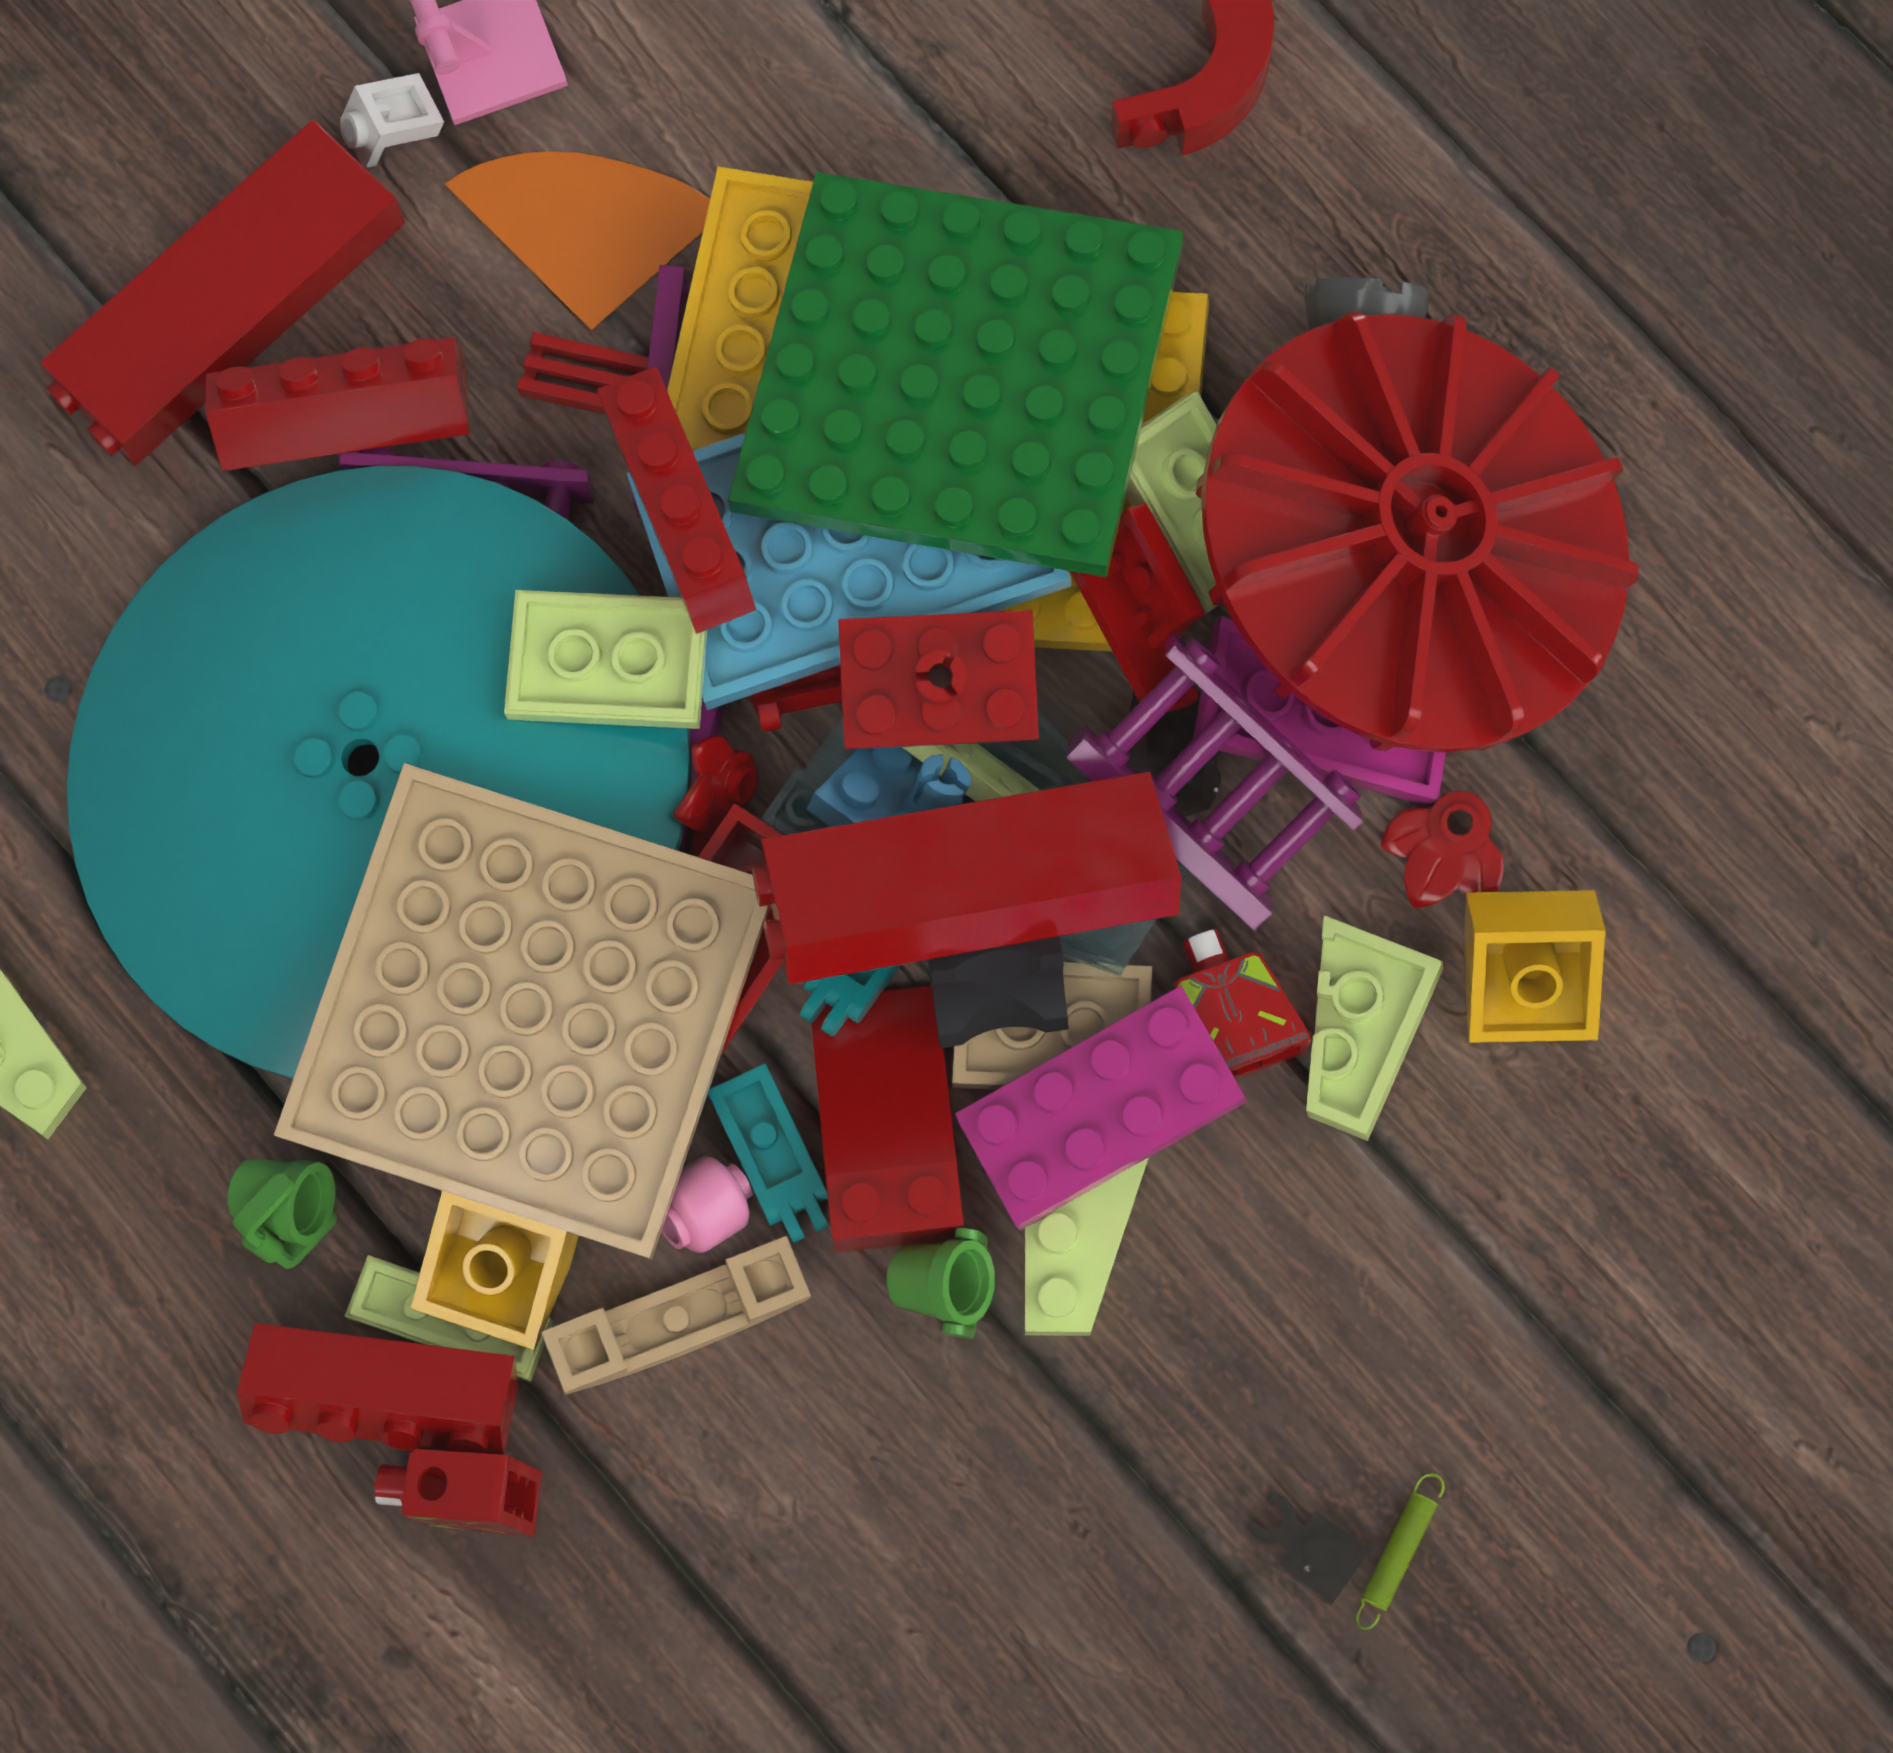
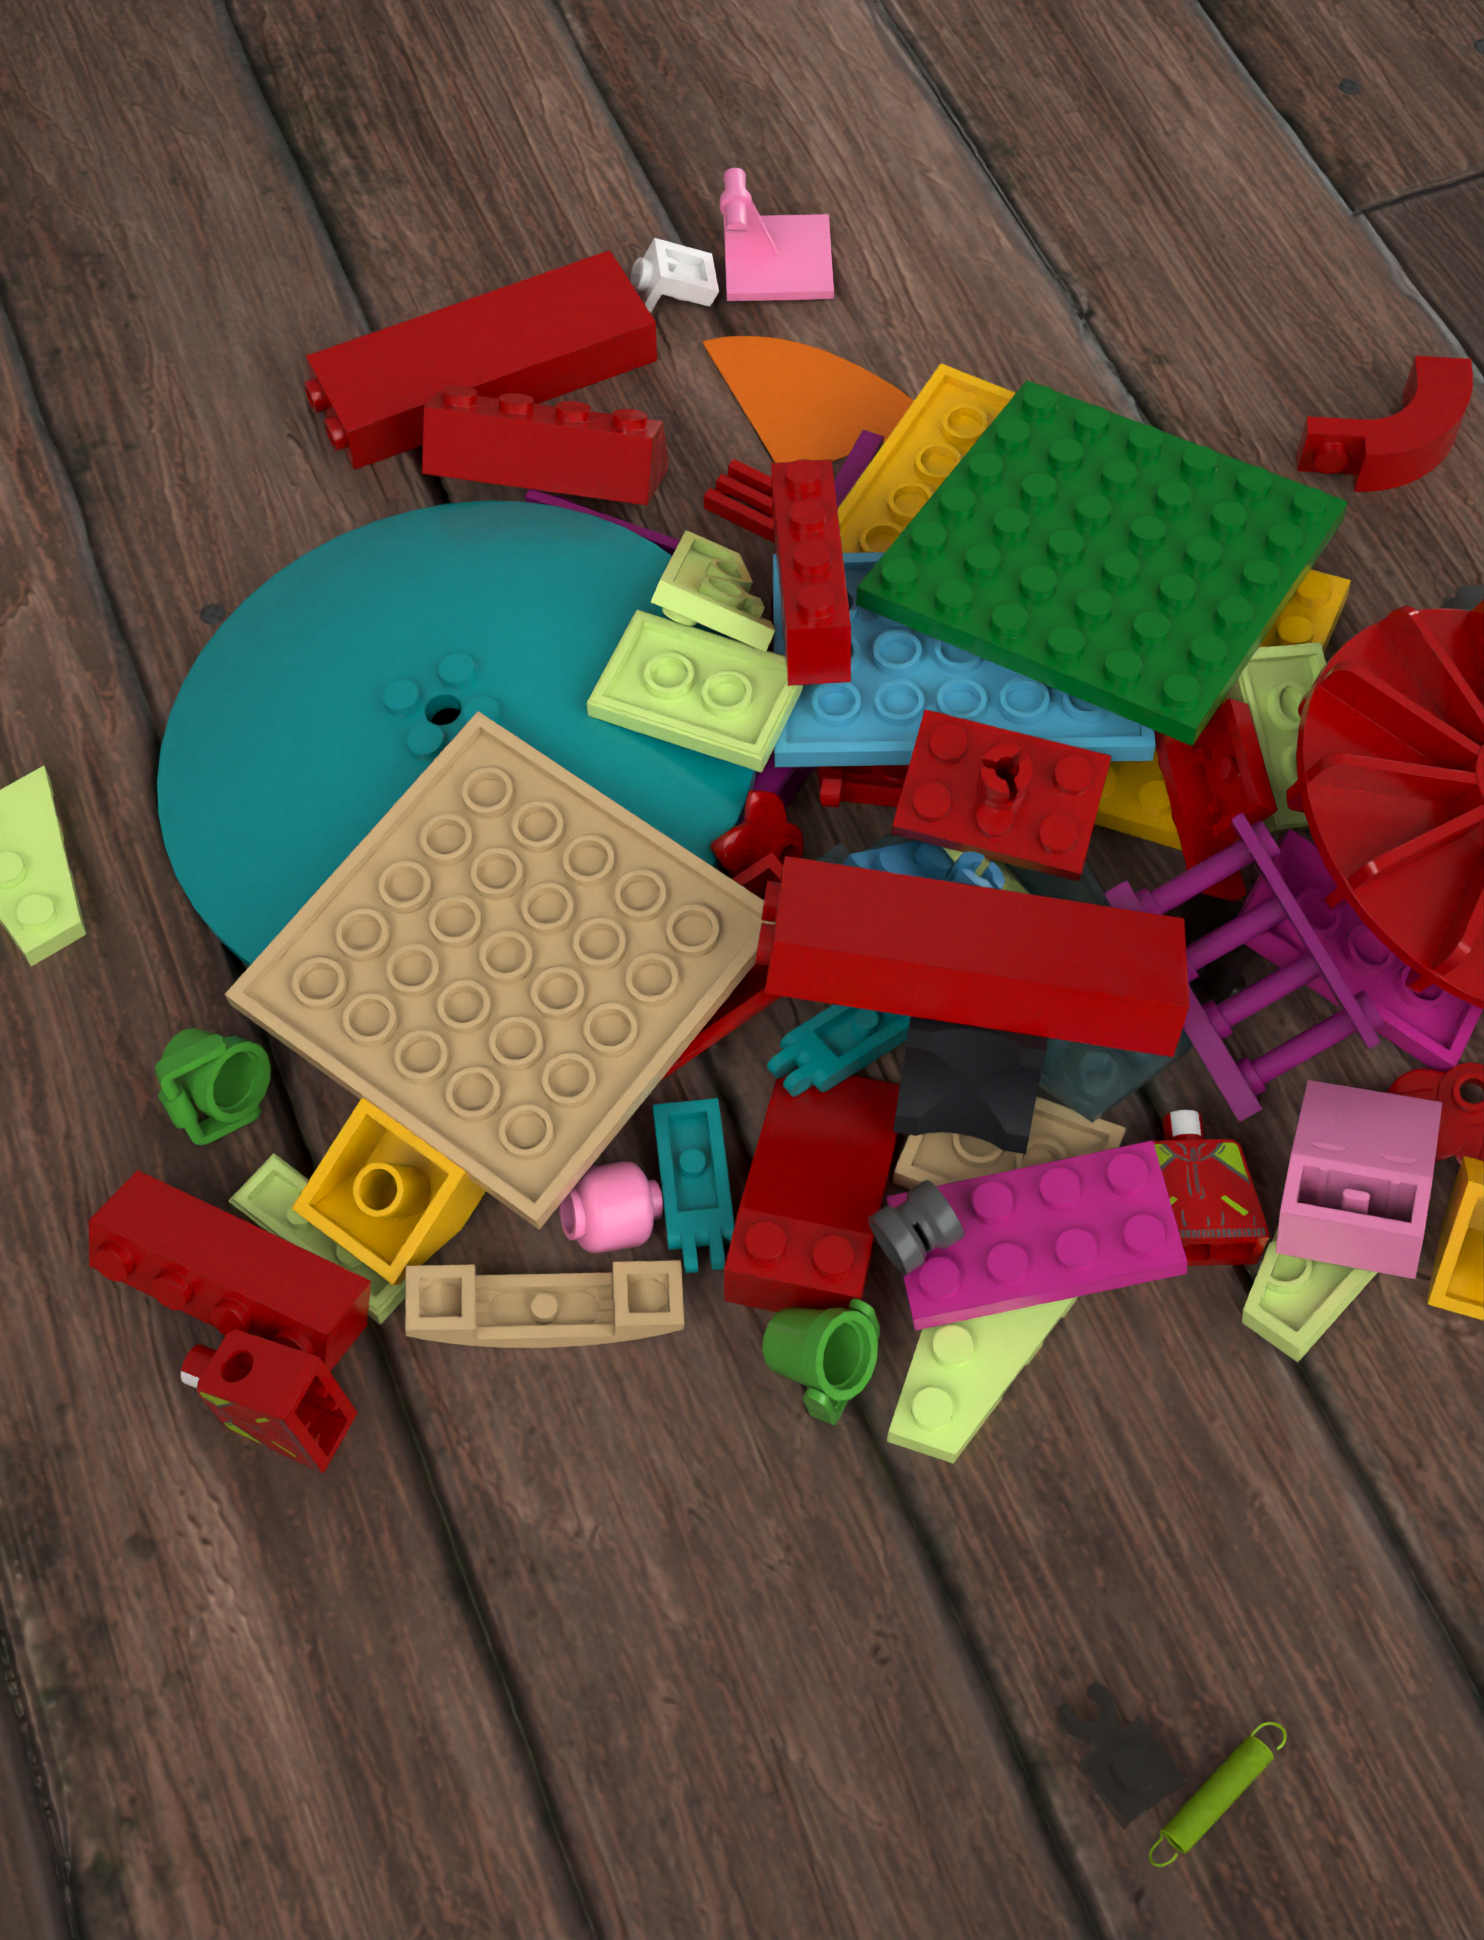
camera: 15 degrees right, 15 degrees down
(575, 540) = (711, 588): none -> yellowish green wing
(993, 1147) = (916, 1227): none -> dark grey wheel
(1376, 949) = (1359, 1179): none -> bright pink slope

